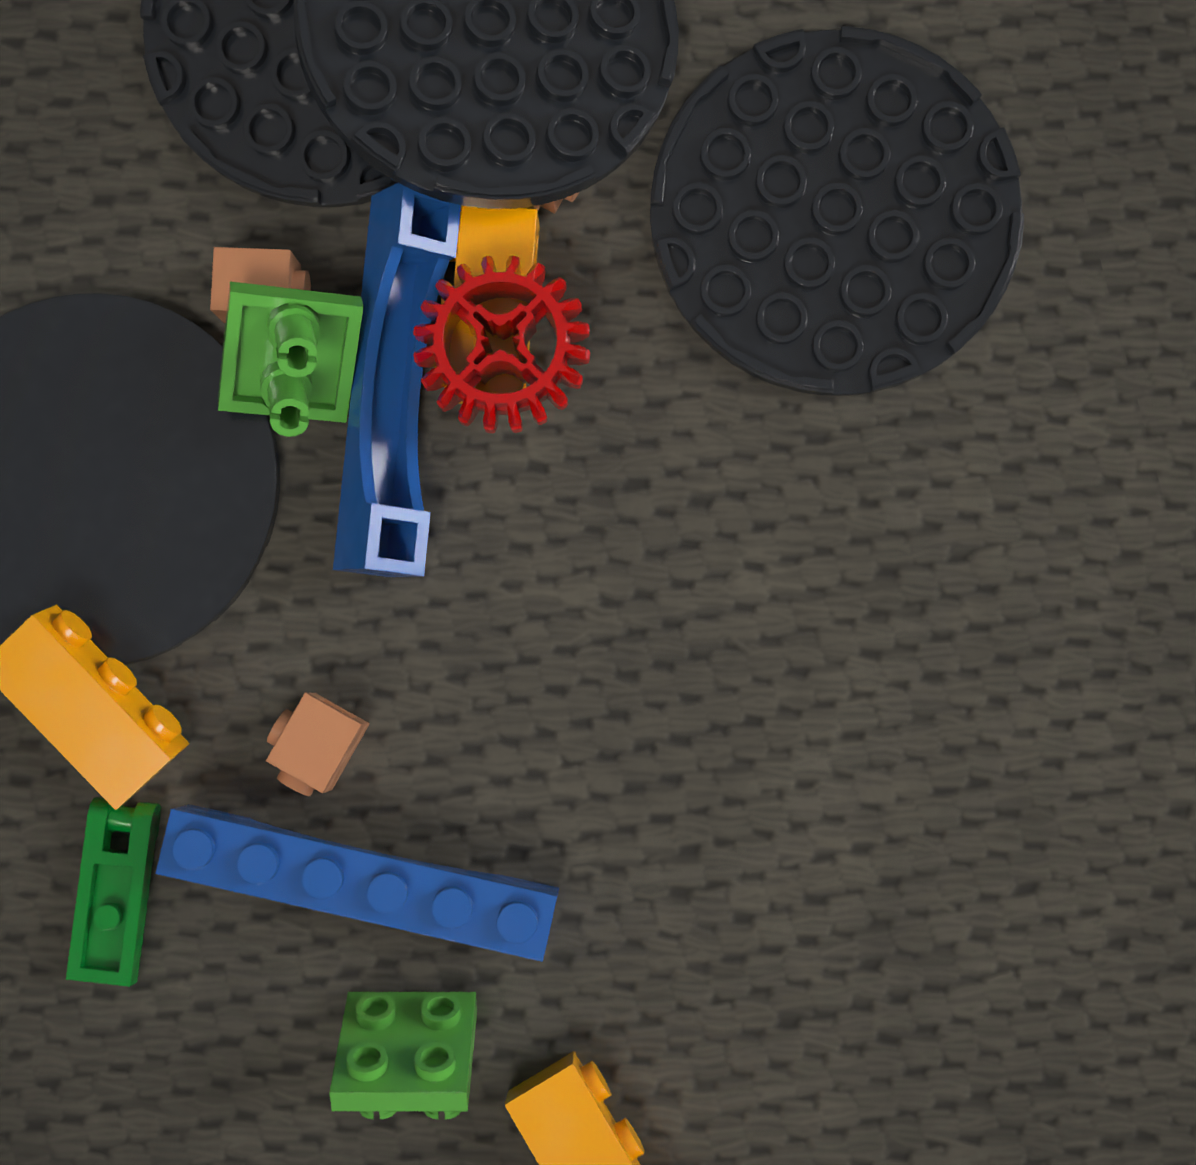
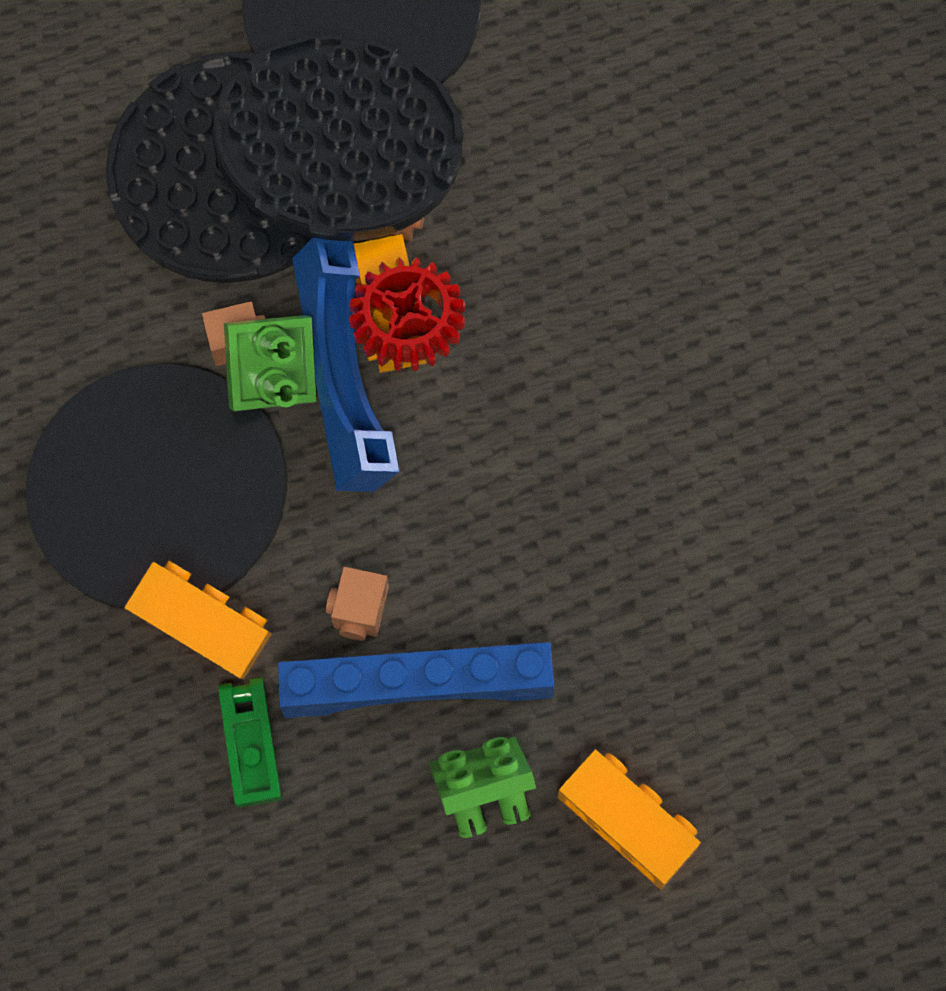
camera: 20 degrees left, 15 degrees down
(836, 211) = (590, 191): black tile -> none

